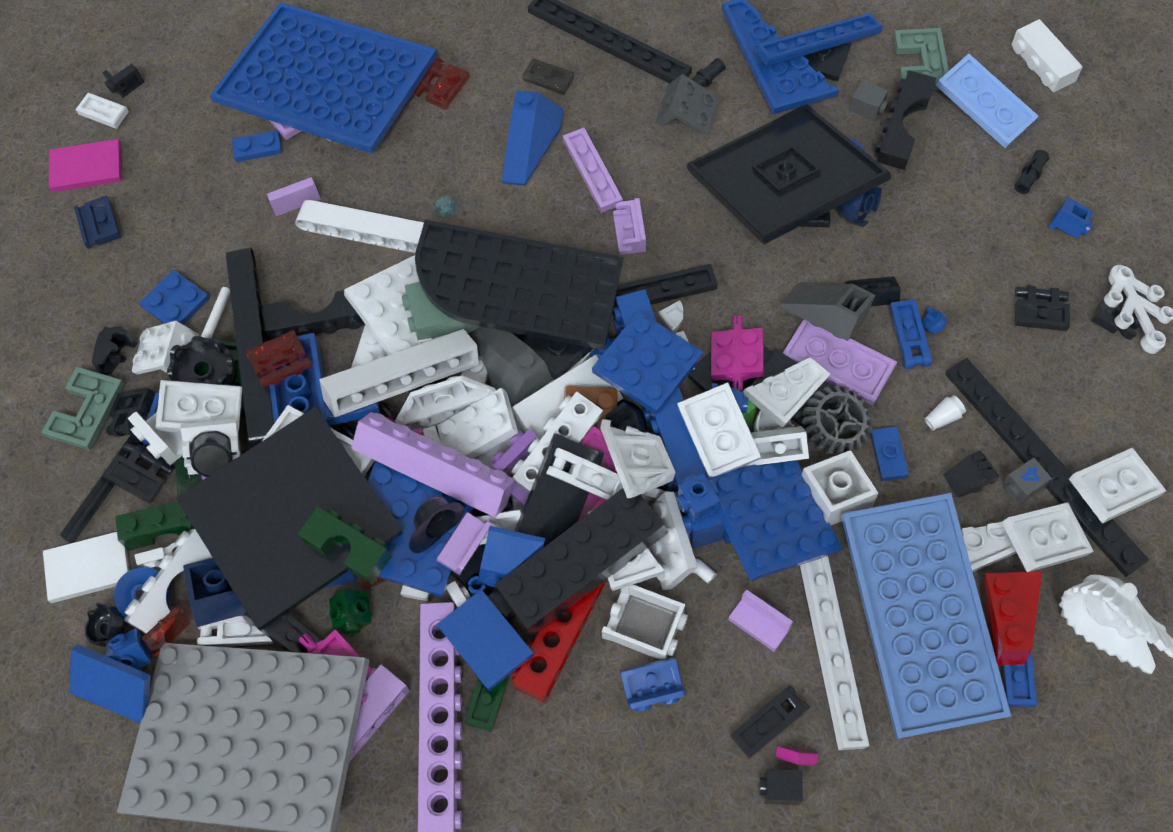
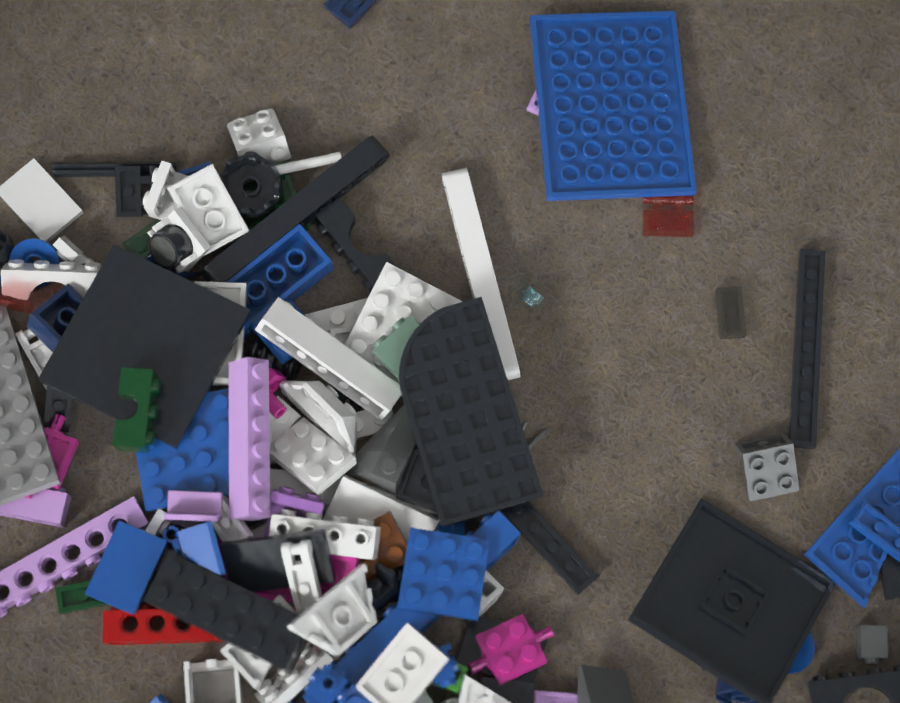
camera: 55 degrees right, 10 degrees up
(86, 426) = (156, 120): sand green plate -> none
(108, 348) = (232, 92): black hand -> none
(124, 406) = (190, 146): black plate -> none
(142, 526) = (93, 230): dark green arch -> none
(174, 299) = (312, 115): blue plate -> none
(257, 146) = (507, 87): blue plate -> none
(275, 354) = (293, 242): clear red plate -> none
(293, 196) = (471, 153): lavender panel -> none
(350, 611) = (98, 441): dark green brick -> none
(433, 521) = (197, 468): black piece -> none
(531, 130) = (658, 331): blue wedge -> none
(592, 169) = (645, 412): lavender plate -> none
(629, 227) = (599, 481): lavender hinge -> none
(672, 316) = (527, 569): white tile -> none
(705, 76) = (815, 466): black pin -> none

